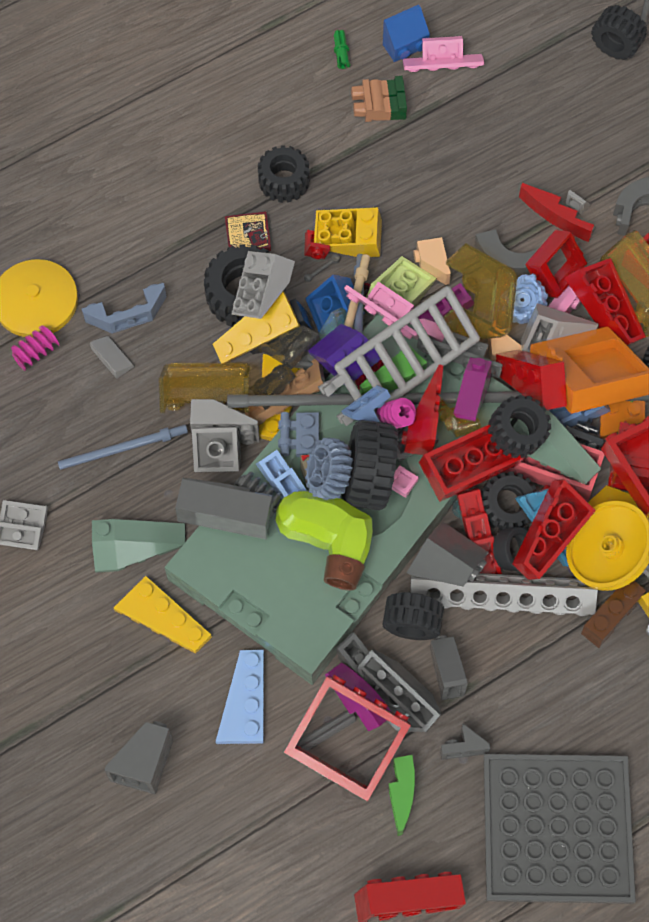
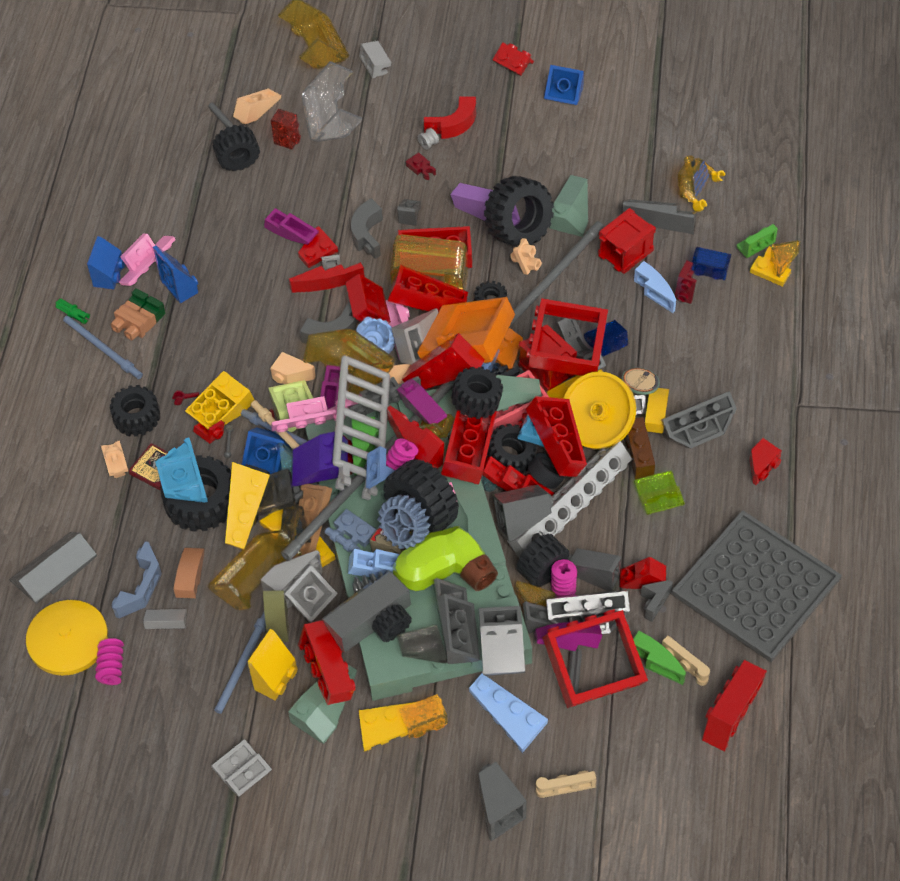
camera: 50 degrees left, 10 degrees down
(87, 236) = (54, 567): none -> slope
(122, 473) = (271, 666): none -> yellow slope
(156, 519) = (326, 663): none -> red wedge
(166, 339) = (189, 573): none -> nougat slope
(172, 440) = (276, 613): none -> olive slope
(179, 633) = (424, 716): none -> clear yellow bracket
(209, 804) = (565, 784): none -> tan plate
(224, 196) = (115, 459): none -> light nougat hips
(230, 255) = (181, 474): none -> dark azure wing
(230, 537) = (391, 623): none -> black tyre
(235, 580) = (423, 645): none -> clear smoke wing
(261, 283) = (219, 472): light grey slope -> none
(278, 590) = (457, 622): none -> dark grey slope
(290, 643) = (502, 640): none -> slope
(325, 131) = (125, 365): none -> sand blue bar
(331, 196) = (179, 396): none -> dark red hand
(373, 635) = (532, 594): none -> clear yellow slope
(411, 648) = (563, 578): none -> dark pink piece
(419, 821) = (688, 661): none -> tan plate
(443, 93) = (175, 276): none -> blue slope
(479, 716) = (642, 573): none -> red slope
(581, 141) = (290, 227): none -> magenta slope
(582, 179) = (317, 248): none -> red wing
(583, 665) = (659, 492): none -> clear neon green slope

